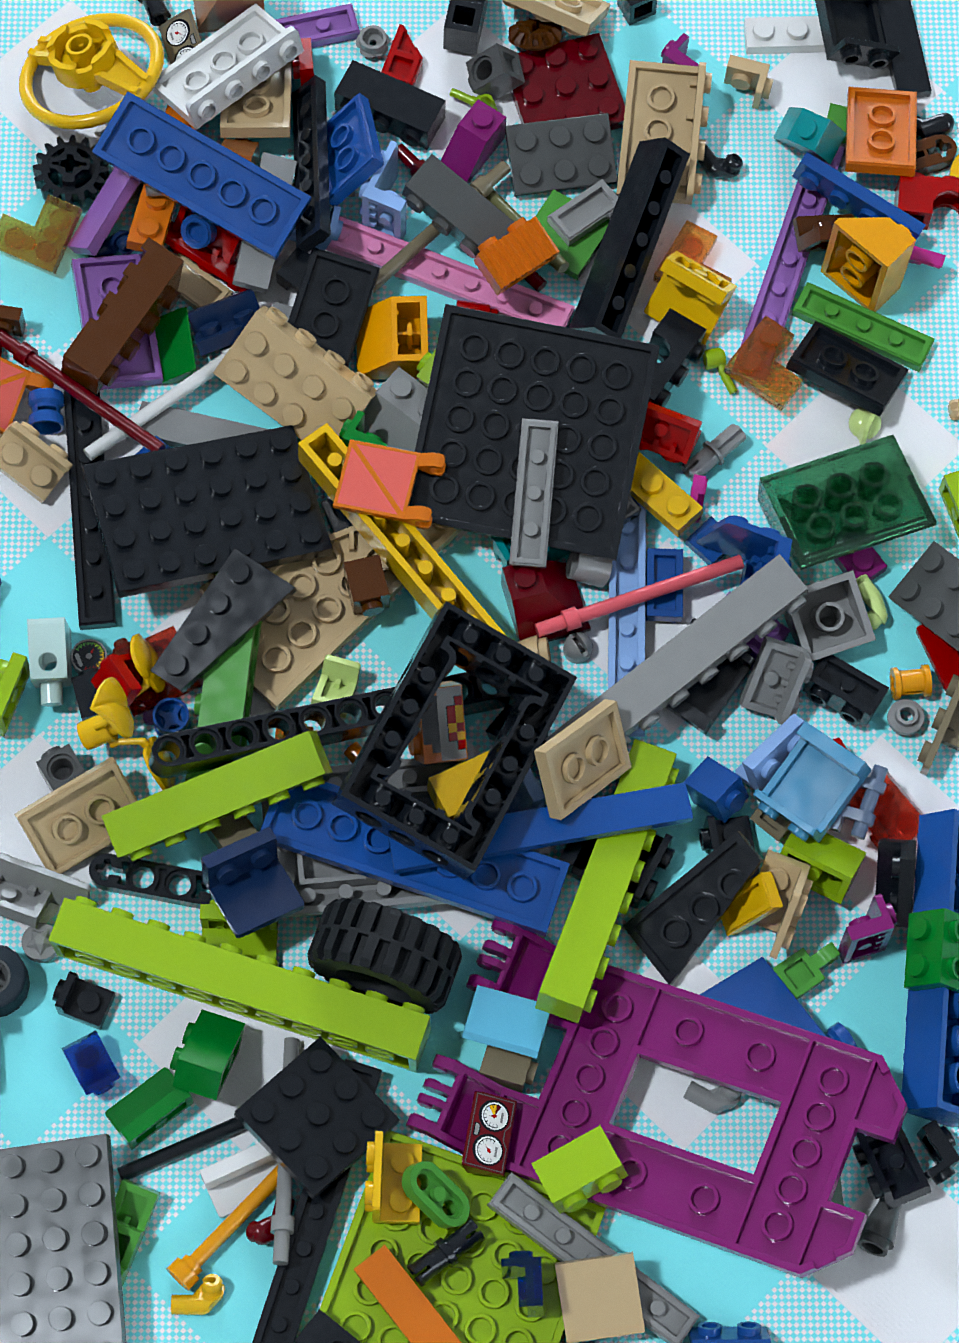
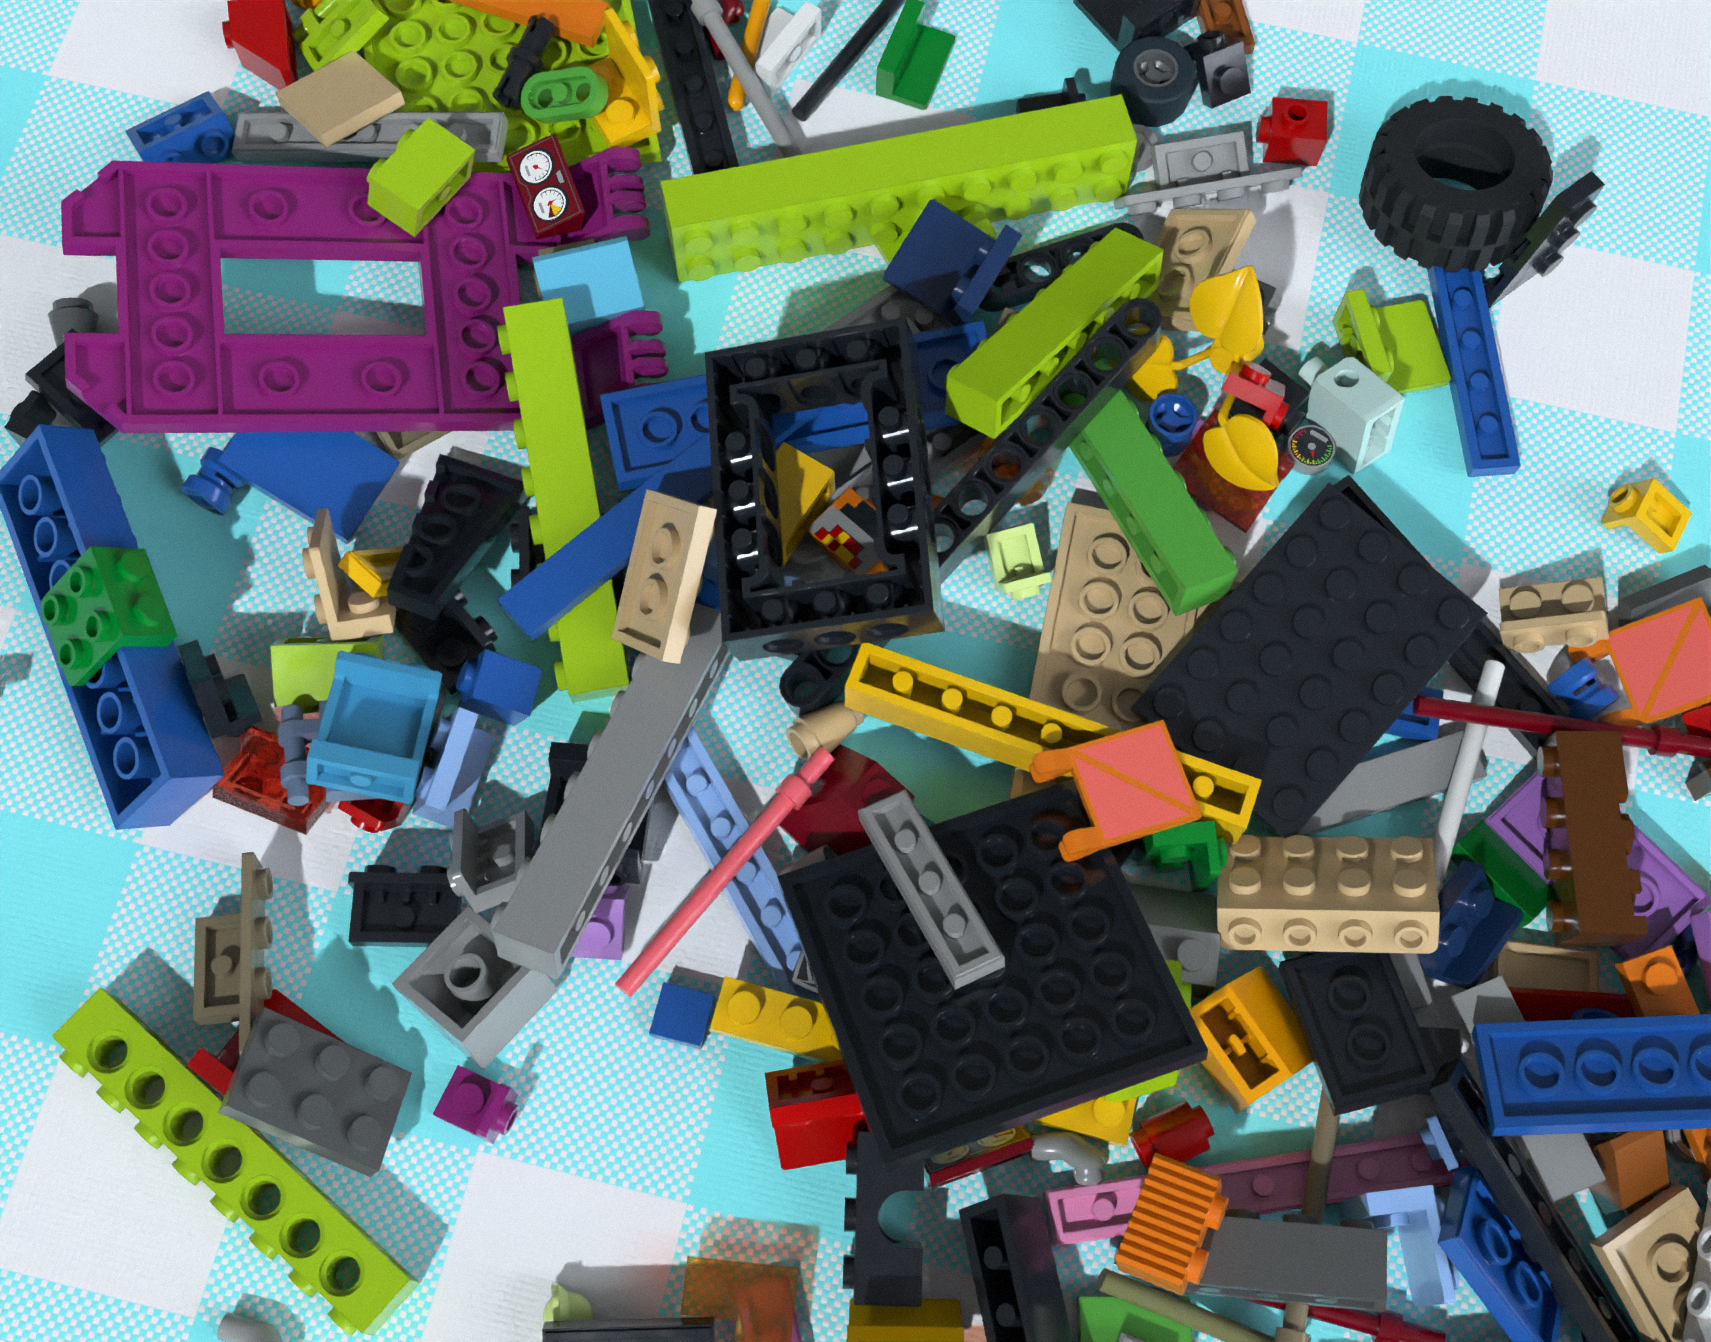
camera: 150 degrees right, 0 degrees up
(91, 1064) = (995, 60): clear blue bracket -> none
(207, 1054) = (886, 100): green brick -> none
(225, 613) = (1193, 529): black wing -> none
(316, 1117) = (733, 105): black plate -> none
(366, 585) = (1060, 677): reddish brown brick -> none
(385, 953) = (760, 263): black tyre -> none
(529, 1274) = (419, 58): clear blue bracket -> none
(572, 651) = (761, 787): light grey hinge -> none
(660, 566) = (718, 933): blue plate -> none
(698, 490) = (732, 1061): dark pink tile -> none
(714, 359) = (821, 1285): lime hand -> none
(714, 452) = (744, 1142): light grey axle -> none
(754, 544) = (591, 1005): blue bracket -> none
(803, 972) = (284, 553): bright green plate -> none
(845, 502) = (518, 1144): clear green slope -> none
(870, 932) = (224, 609): magenta bracket -> none
(874, 600) = (427, 1056): yellowish green arm -> none
(901, 726) = (319, 936): light grey plate -> none
(910, 682) = (325, 969): light orange bush -> none

